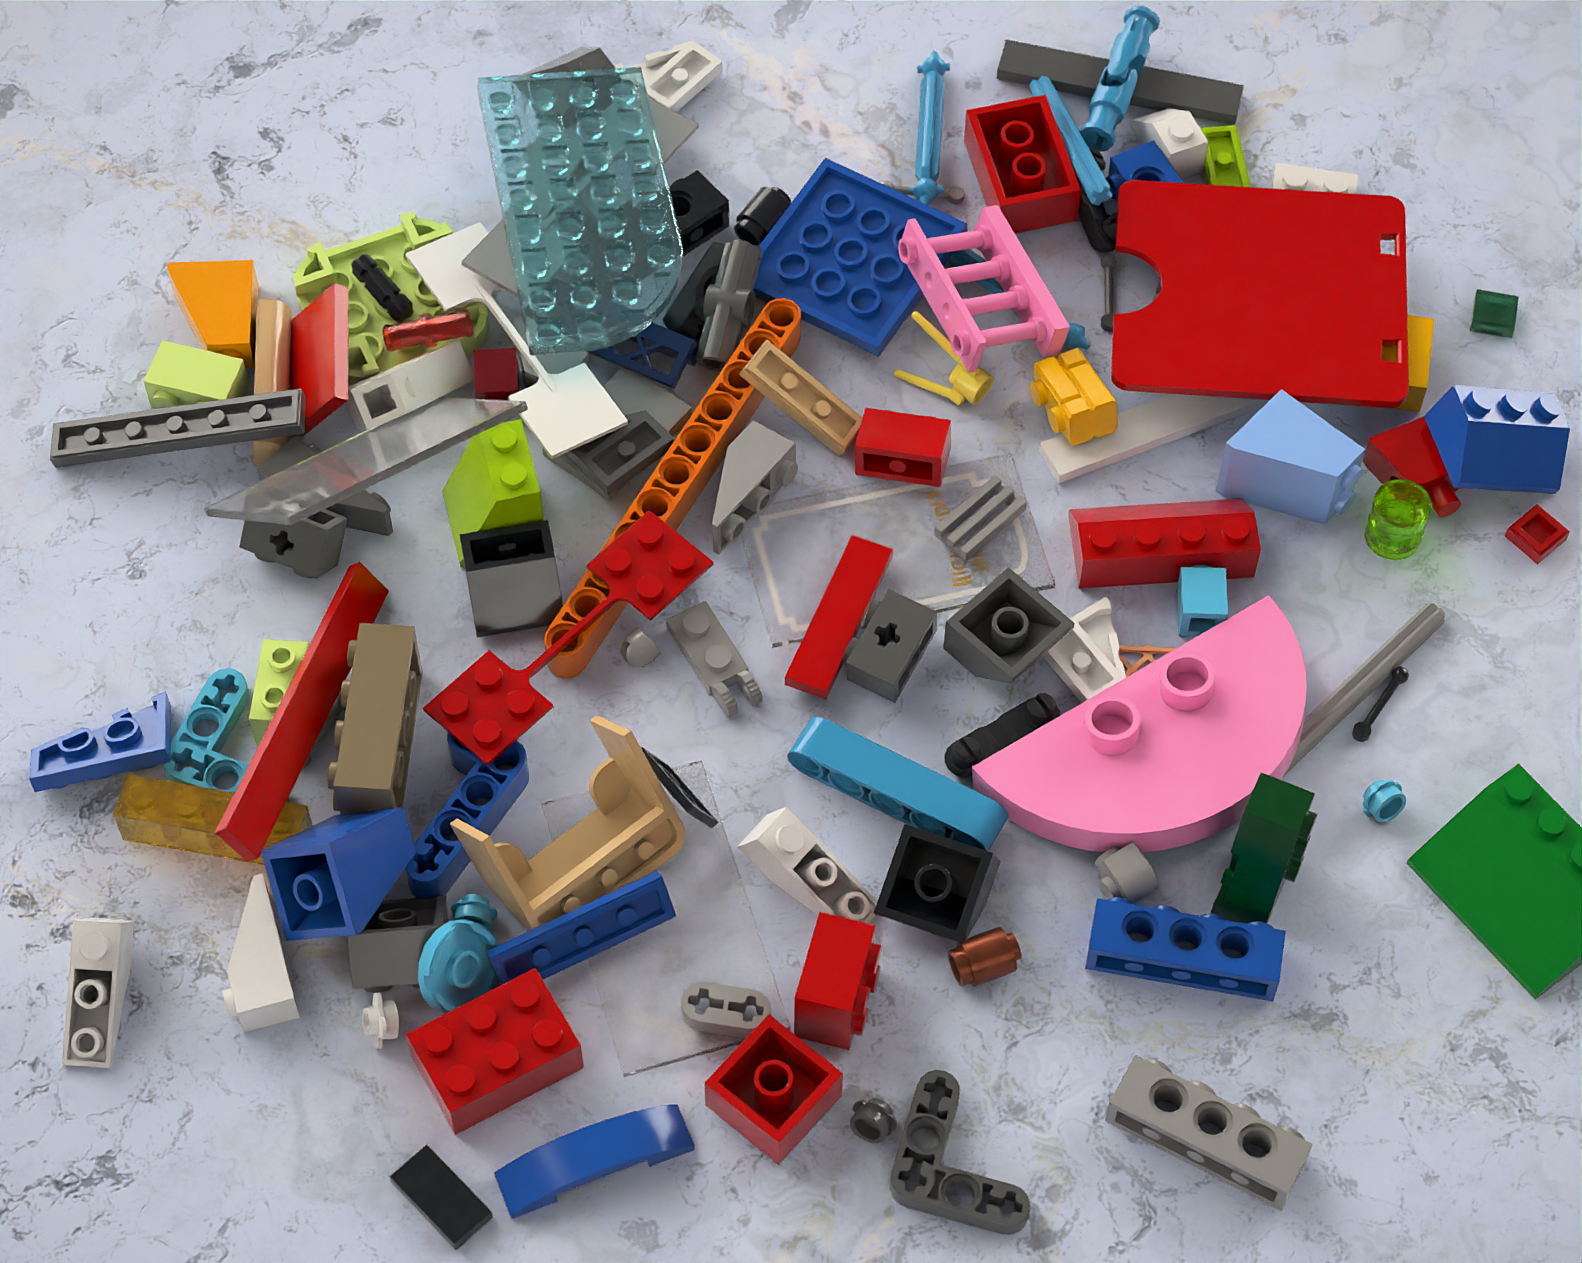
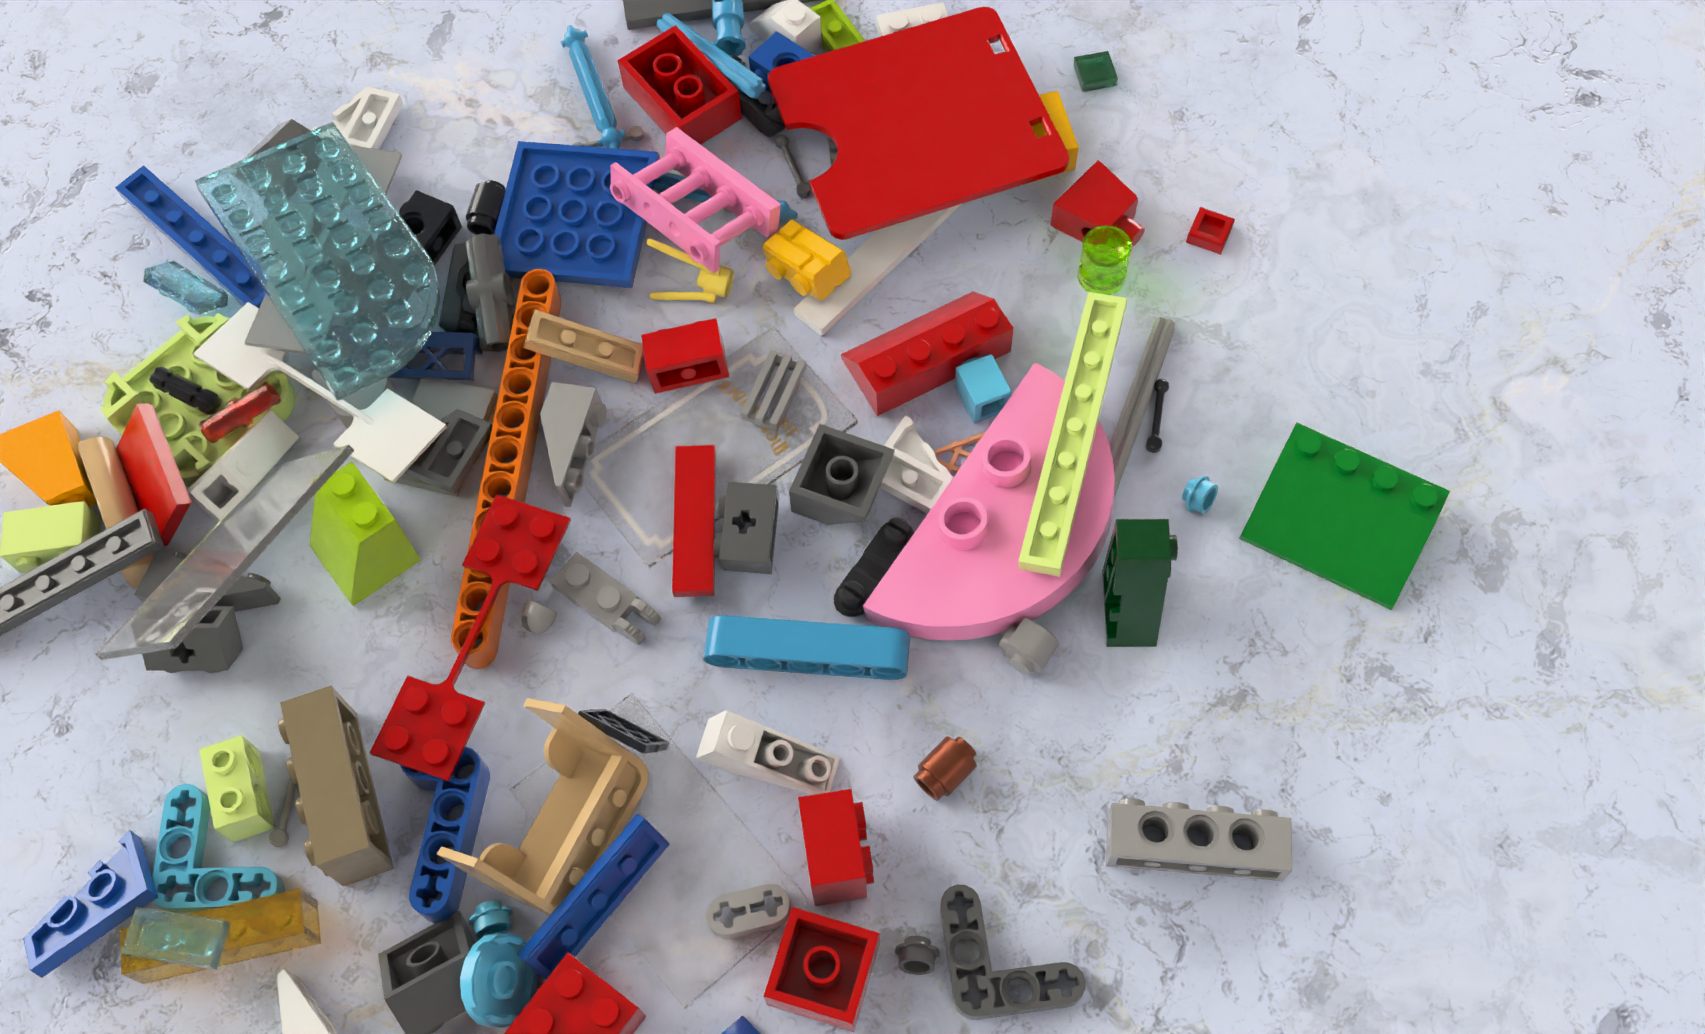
camera: 20 degrees left, 5 degrees up
(178, 798) = (176, 938): none -> clear light blue plate
(300, 715) = (259, 813): red tile -> none
(337, 872) = (352, 940): blue slope -> none
(422, 183) = (185, 287): none -> clear light blue plate
(450, 131) = (192, 234): none -> blue plate
(496, 373) = (315, 427): dark red brick -> none
(511, 577) = (400, 600): slope -> none
(937, 884) = (879, 723): black slope -> none
(1203, 968) = (1048, 715): blue brick -> none
(1270, 679) = (1072, 435): none -> yellowish green plate
(1291, 462) = (1004, 246): light blue slope -> none
(1500, 438) = (1154, 165): blue slope -> none

